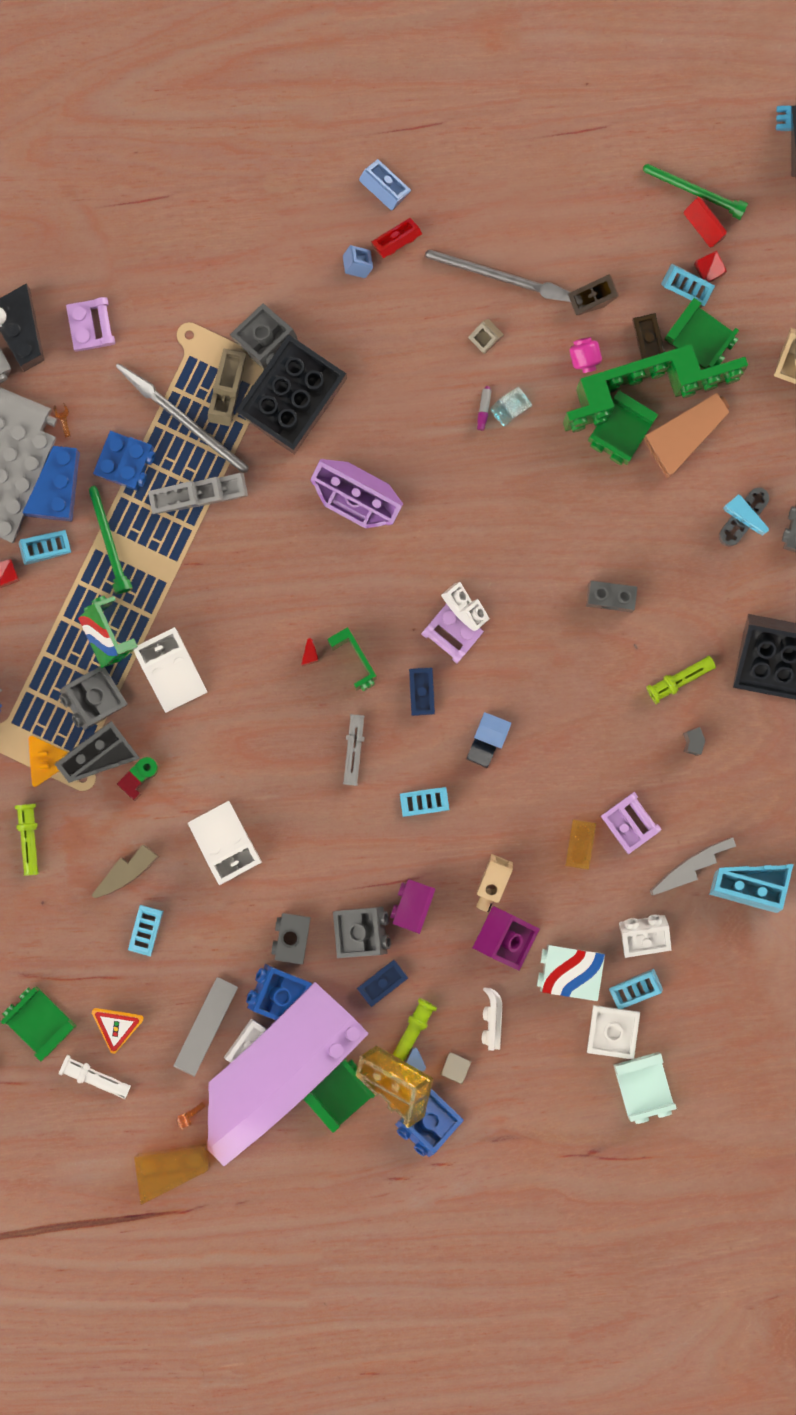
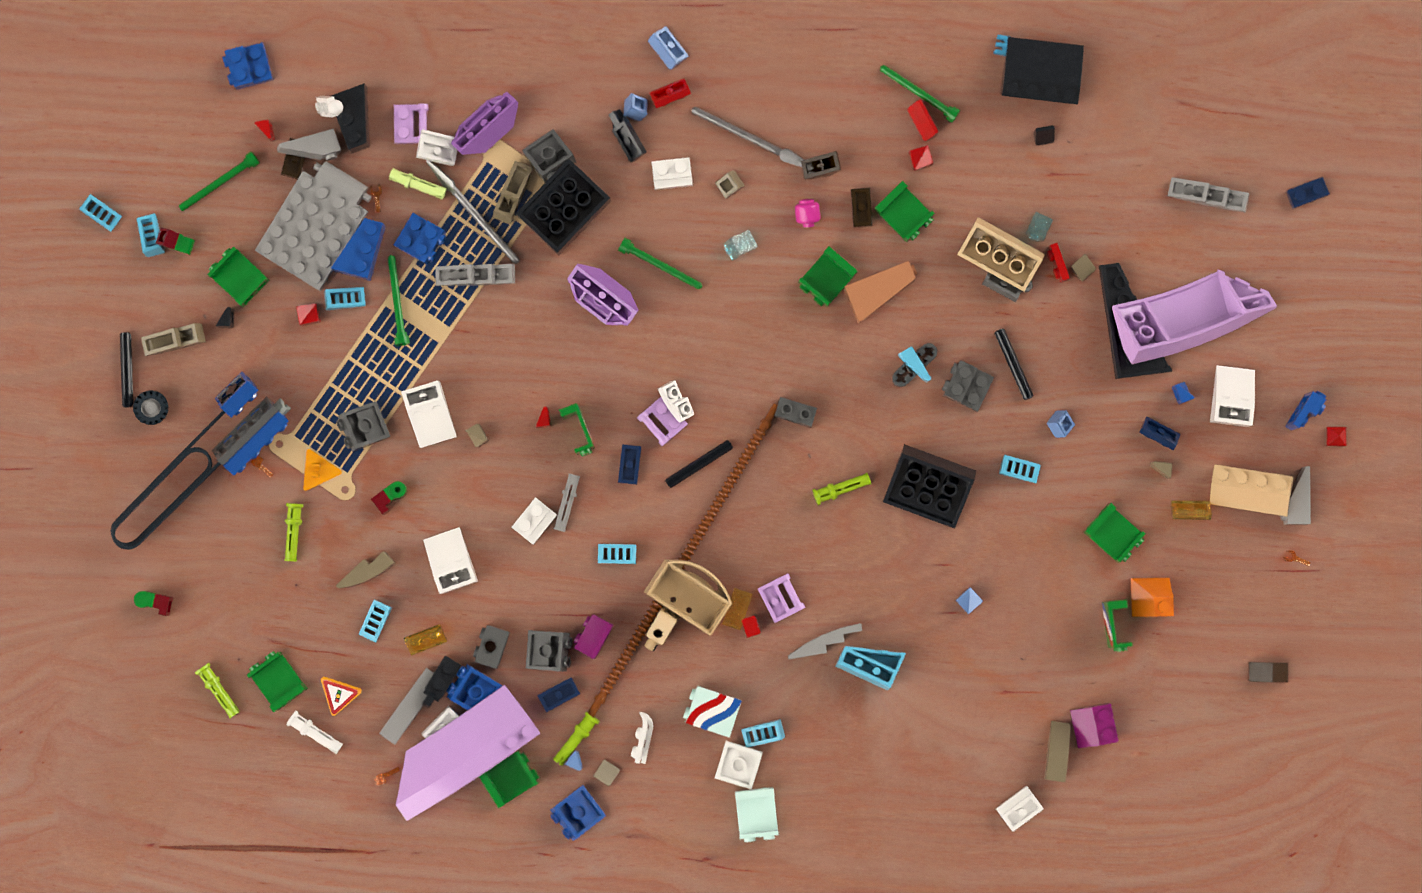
camera: 20 degrees right, 0 degrees up
(96, 754) = (359, 472): dark grey wedge -> none
(100, 634) = (377, 377): green panel -> none
(111, 395) = (411, 181): none -> yellowish green pin
(127, 347) = (436, 148): none -> white plate
(169, 1168) = (362, 815): clear yellow wedge -> none
(182, 310) = (486, 125): none -> medium lavender wedge
(210, 943) = (425, 639): none -> clear yellow plate
(232, 686) = (477, 435): none -> dark tan slope
(237, 990) = (440, 680): none -> black hinge
(318, 778) = (534, 521): none -> white plate
(353, 297) = (626, 136): none -> black hinge
(376, 431) = (628, 247): none -> green piece
(396, 1082) = (556, 776): clear yellow wedge -> none
(414, 334) = (672, 173): none -> white plate
(481, 753) = (669, 521): slope -> none
(484, 407) = (718, 242): piece -> none
(492, 730) = (681, 505): medium blue piece -> none
(505, 677) = (699, 463): none -> black axle
(506, 938) = (664, 675): magenta slope -> none
(521, 831) = (689, 591): none -> tan piece
(576, 618) = (765, 424): none -> dark orange hose
(601, 862) = (751, 626): none -> red slope
(645, 935) = (777, 691): white bracket -> none
(670, 275) = (897, 159): medium azure slope -> none
(682, 372) = (882, 236): green bracket -> none
(694, 741) = (843, 540): dark grey piece -> none

